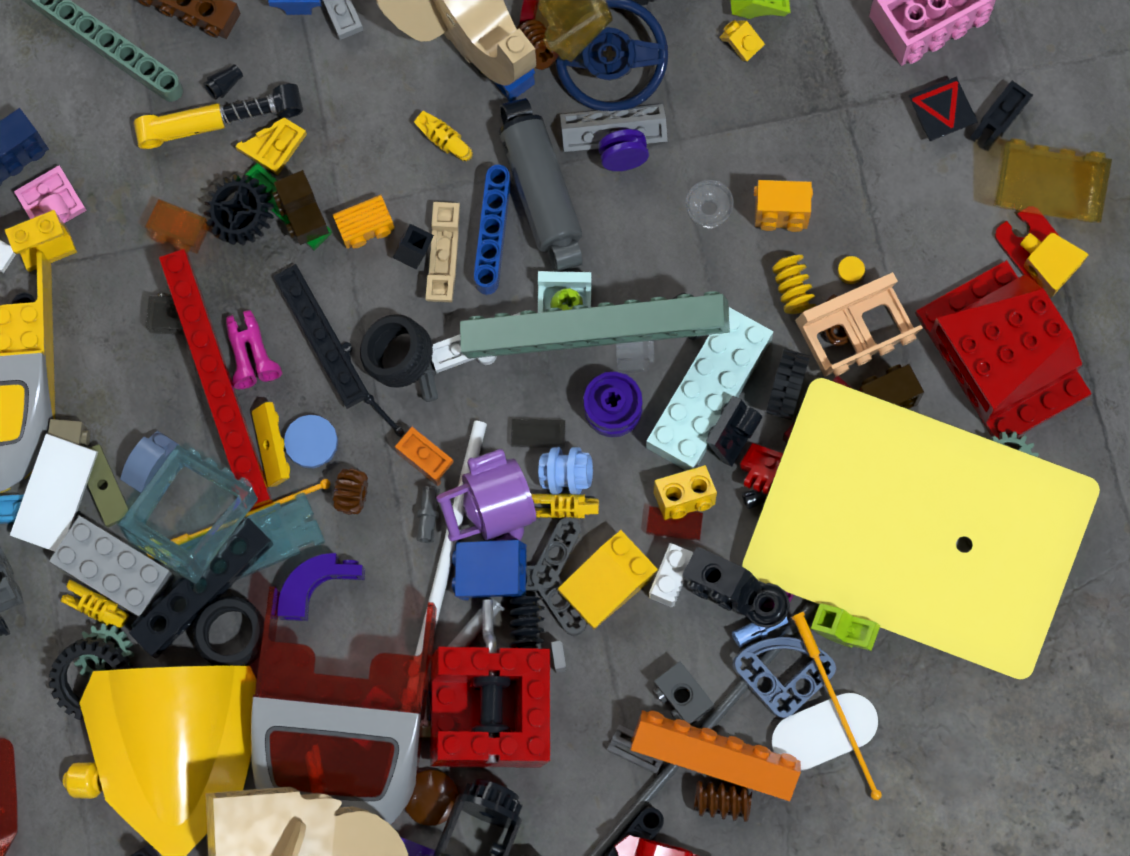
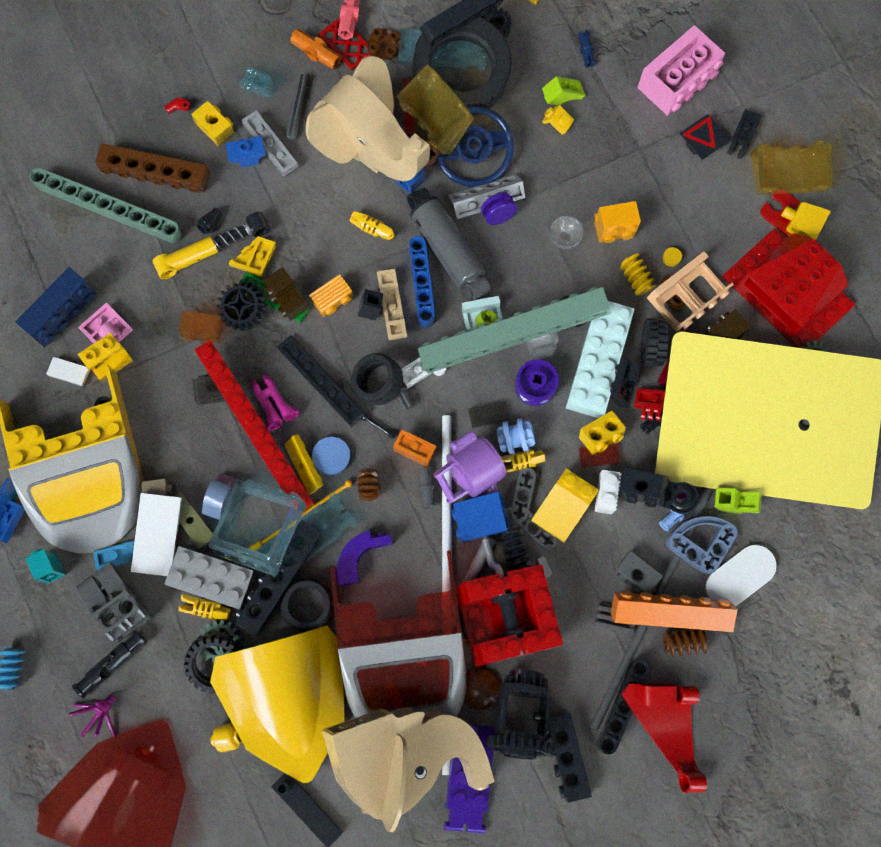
camera: 20 degrees left, 0 degrees up
(814, 652) = (721, 523): light orange piece -> none

